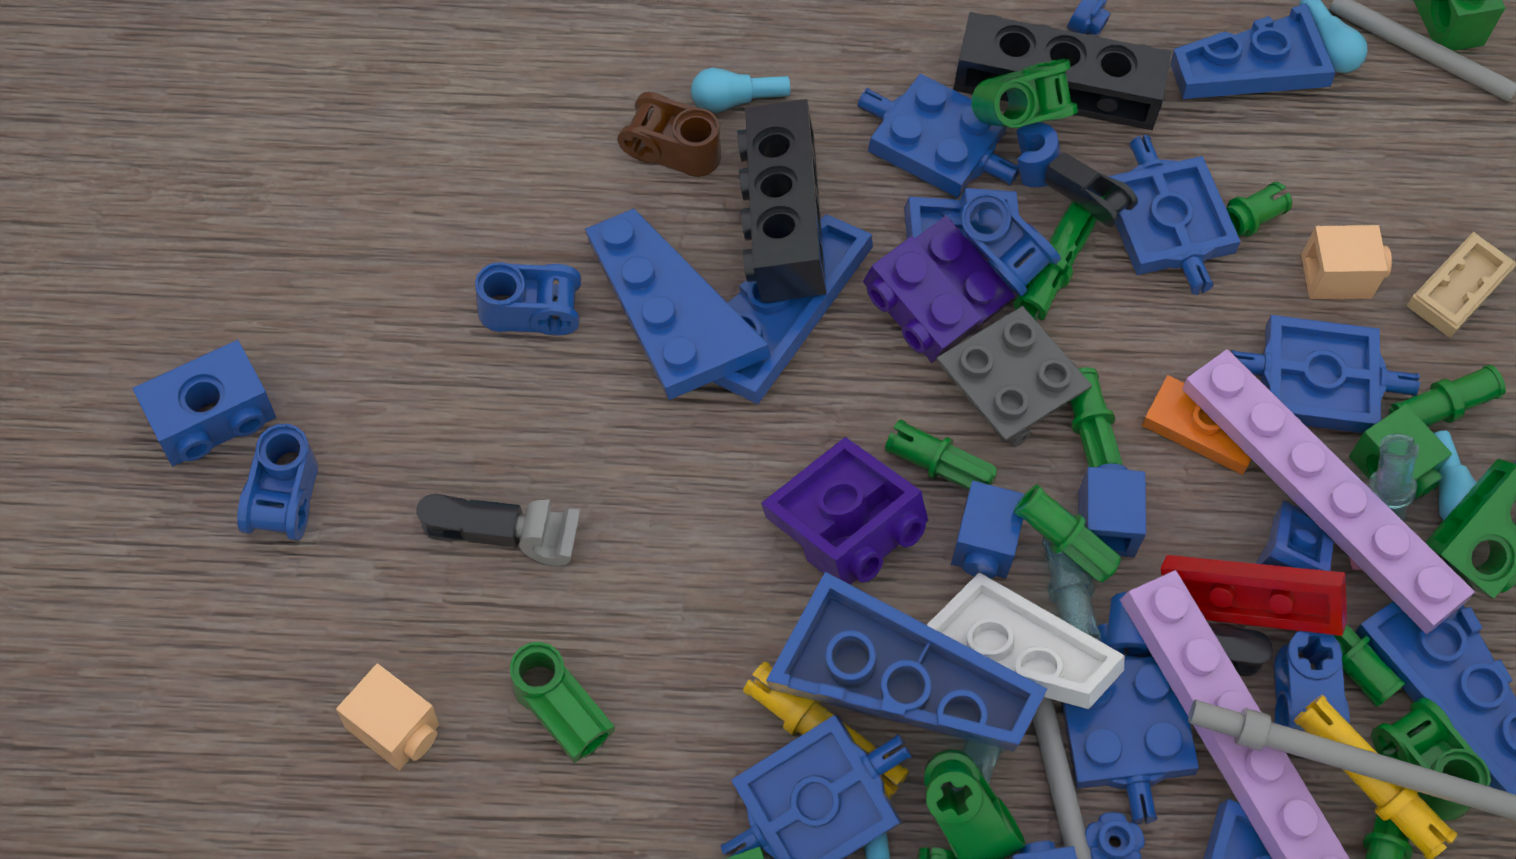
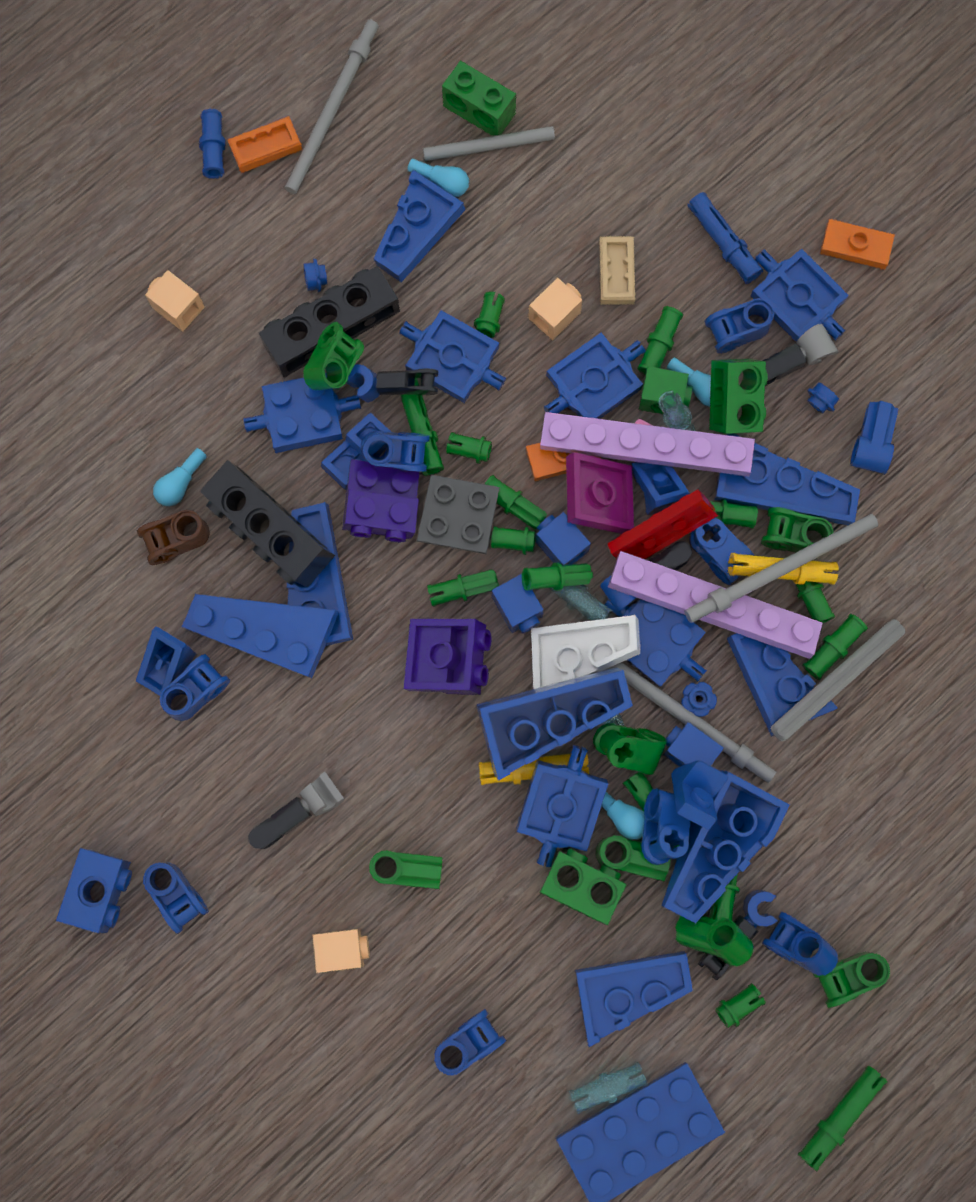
camera: 40 degrees left, 15 degrees up
(532, 234) = (163, 660): none -> blue slope
(1053, 460) = (513, 539): none -> green pin
(1104, 329) = (471, 447): none -> green pin
(1210, 491) = (599, 493): none -> magenta plate

